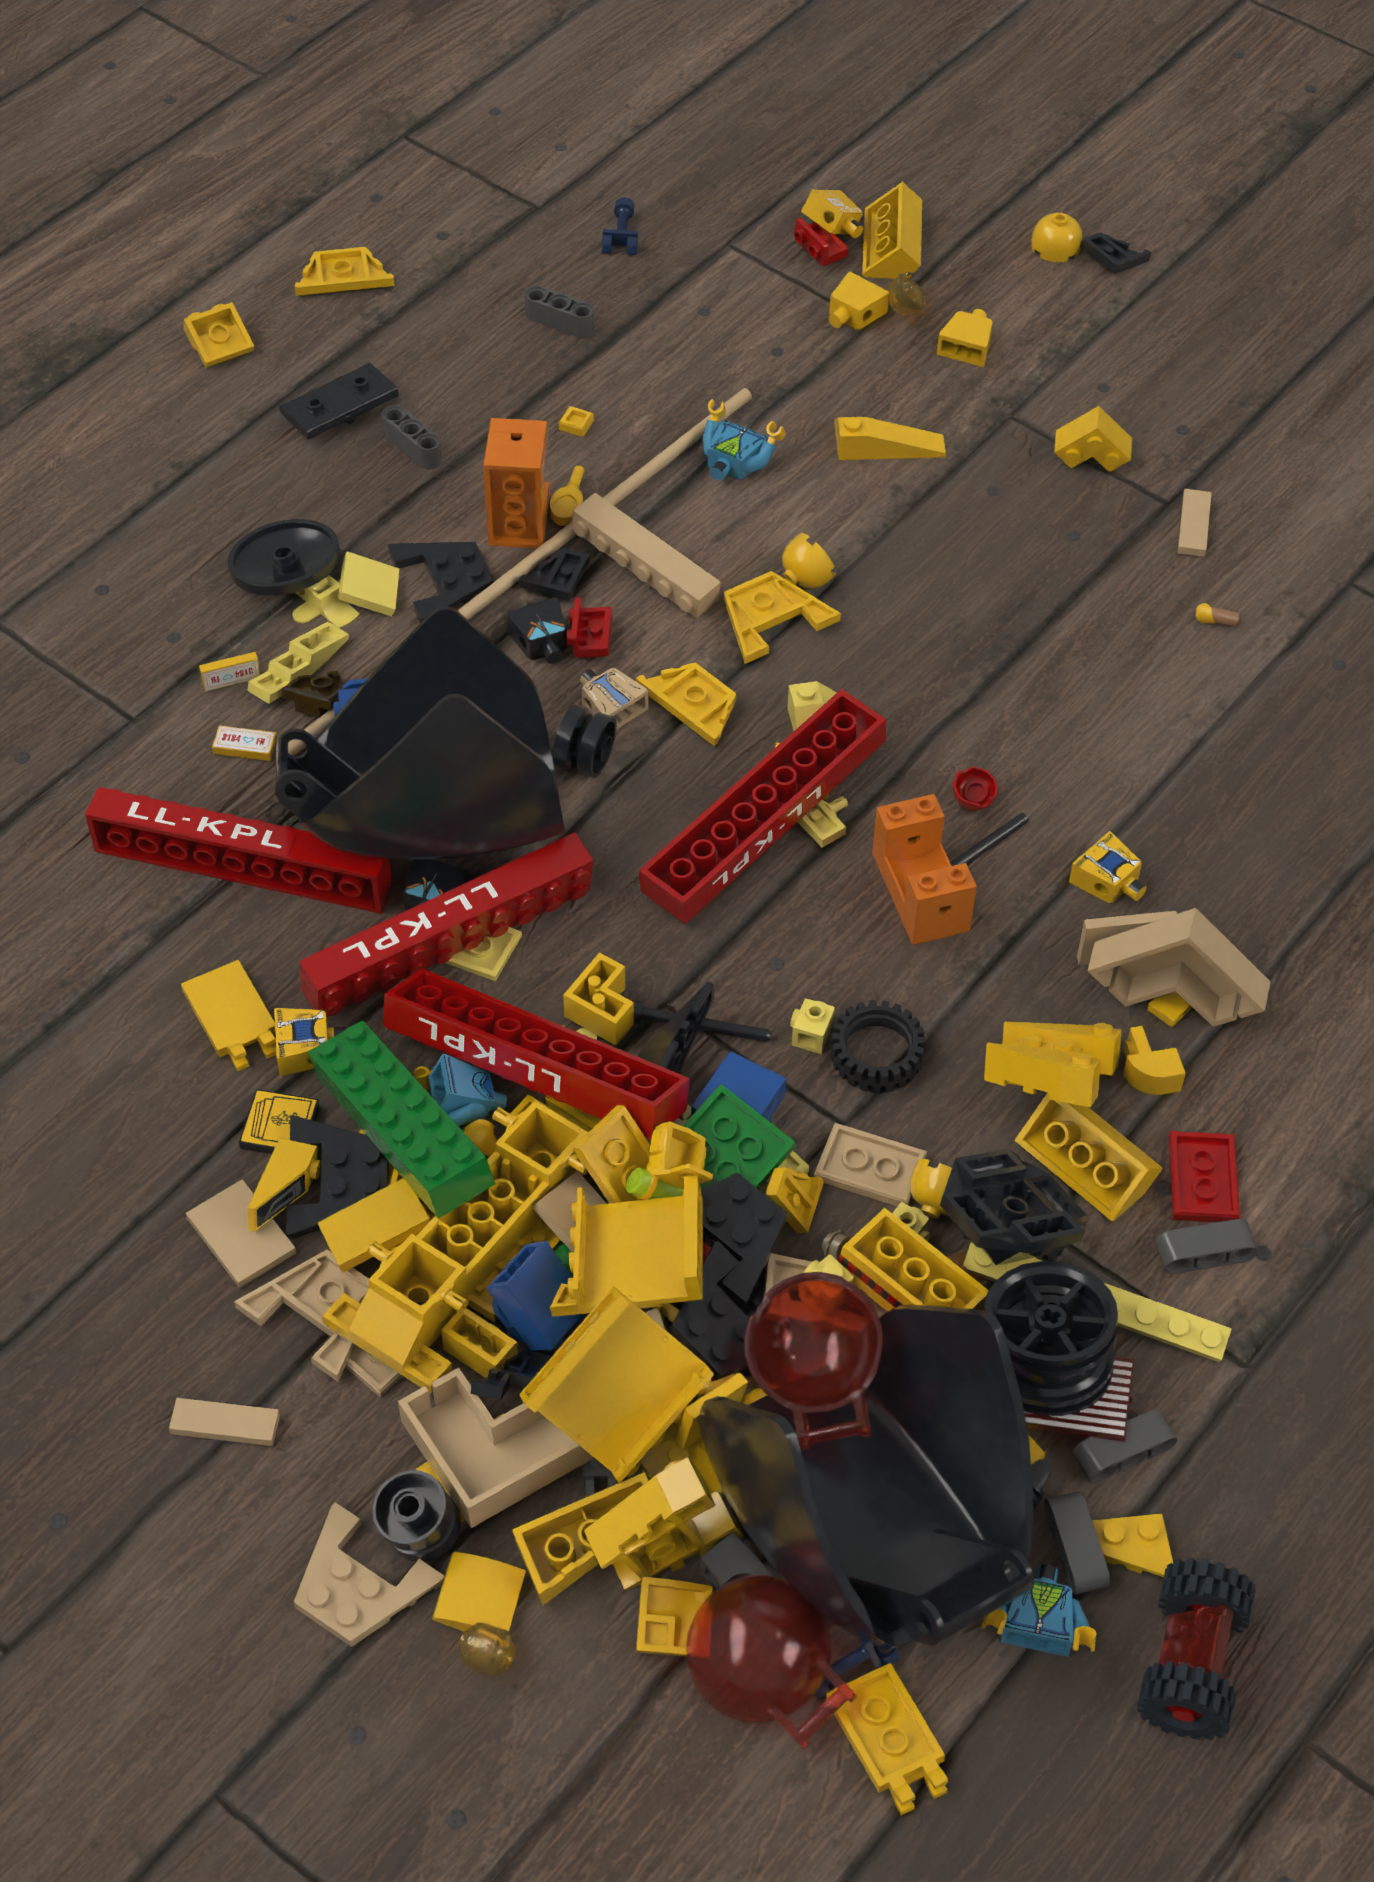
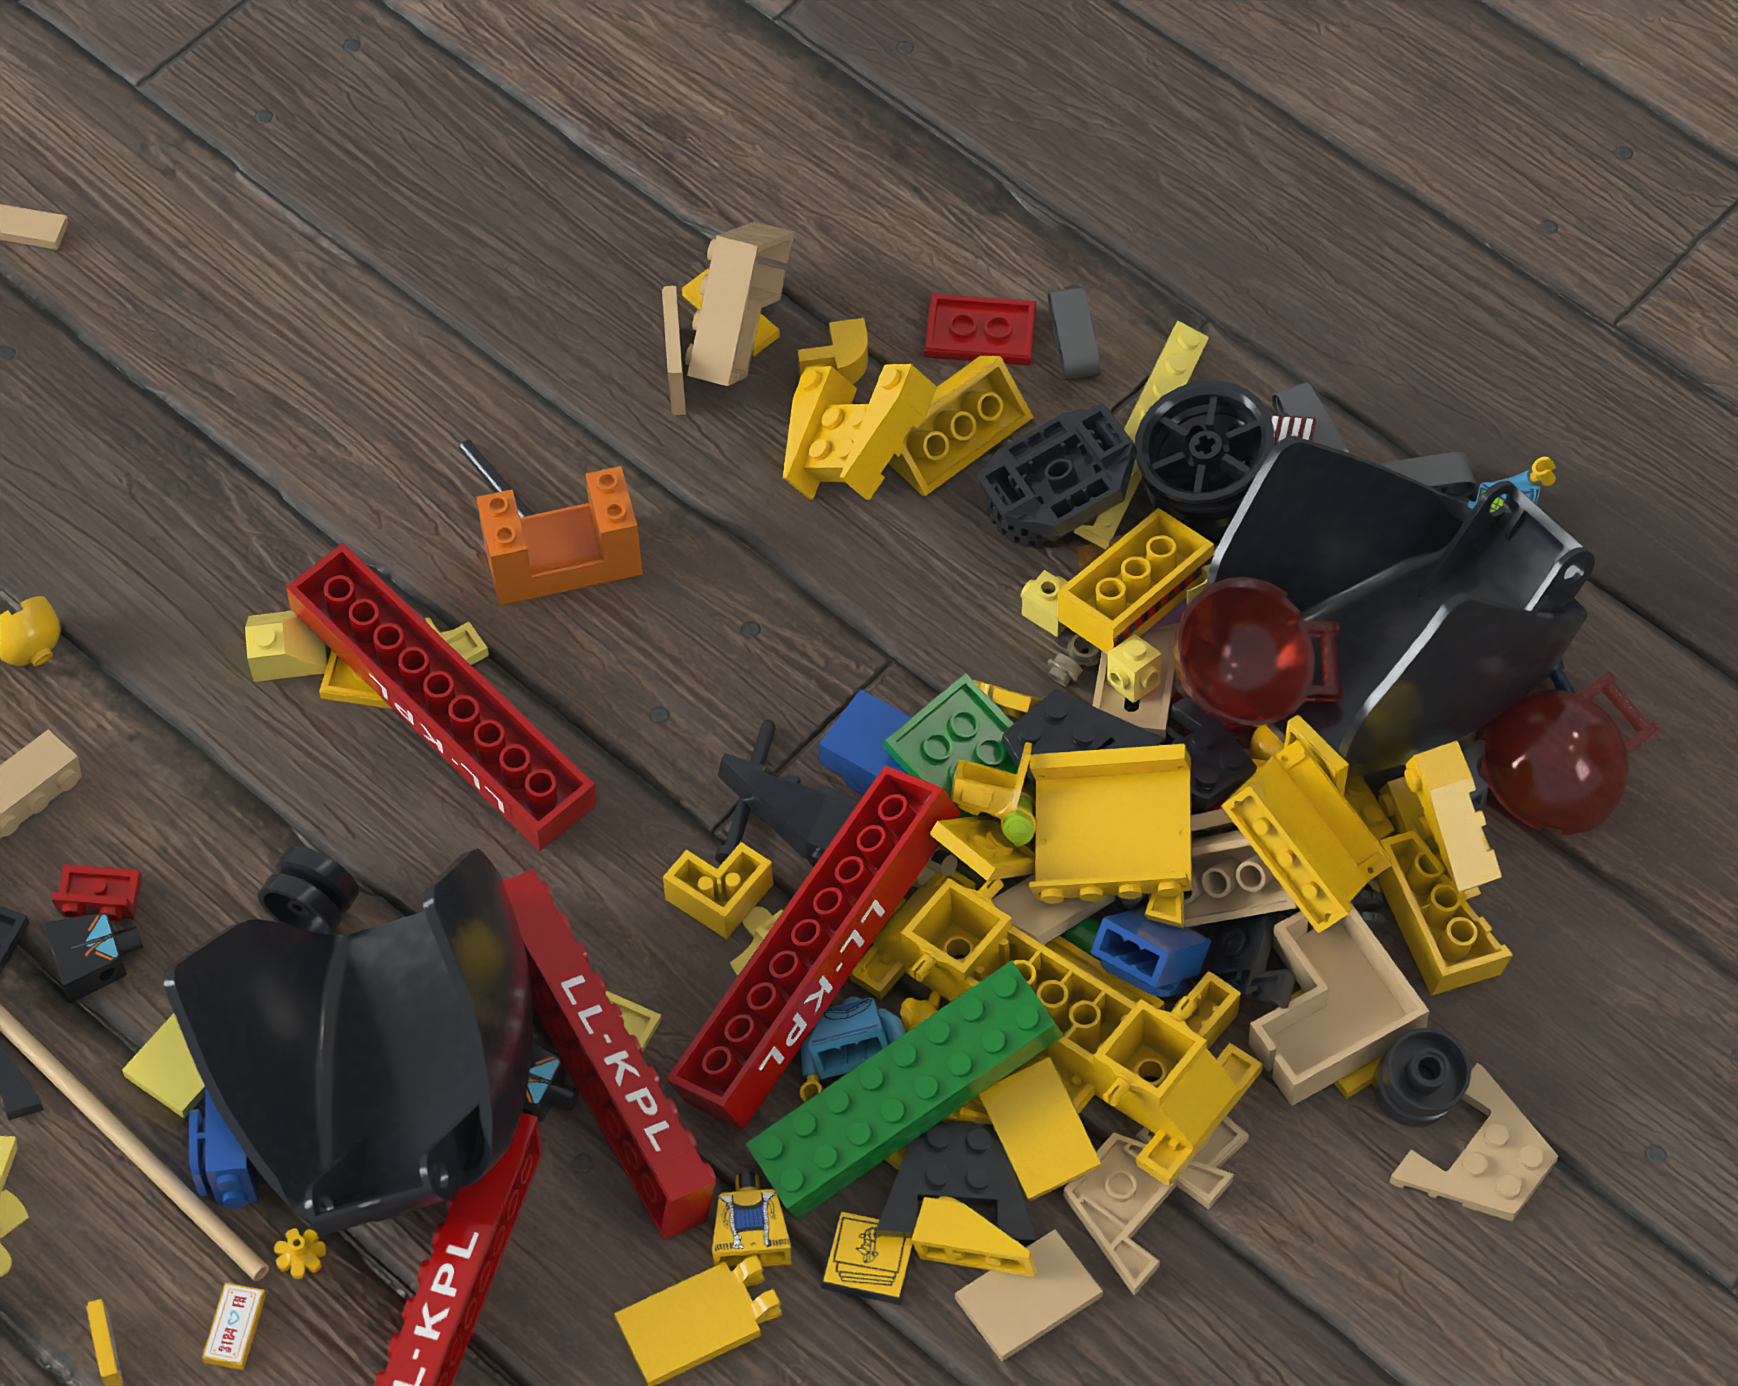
camera: 85 degrees left, 5 degrees up
(224, 1421) = (1286, 1301): tan tile -> none
(303, 658) = (96, 1259): light yellow slope -> none
(314, 695) = (161, 1229): dark brown plate -> none
(477, 1592) = (1499, 1028): yellow slope -> none
(487, 1649) = (1563, 1018): clear yellow head -> none
(613, 695) = (221, 871): tan torso -> none
(666, 1614) = (1521, 848): yellow plate -> none
(693, 698) = (233, 779): yellow wing -> none
(767, 603) = (80, 692): yellow wing -> none
(812, 1025) = (764, 673): light yellow brick -> none
(868, 1165) = (954, 632): tan tile -> none
(877, 1075) = (789, 576): black tyre -> none
(891, 1737) = (1639, 654): yellow tile -> none
(928, 1186) = (1002, 561): yellow cylinder -> none
(974, 789) = (427, 484): red hair -> none
(1108, 871) = (562, 364): yellow torso -> none
(1135, 1542) = (1416, 429): yellow wing -> none
(1186, 1685) = (1546, 383): black plate -> none
(1212, 615) = (178, 217): arm -> none

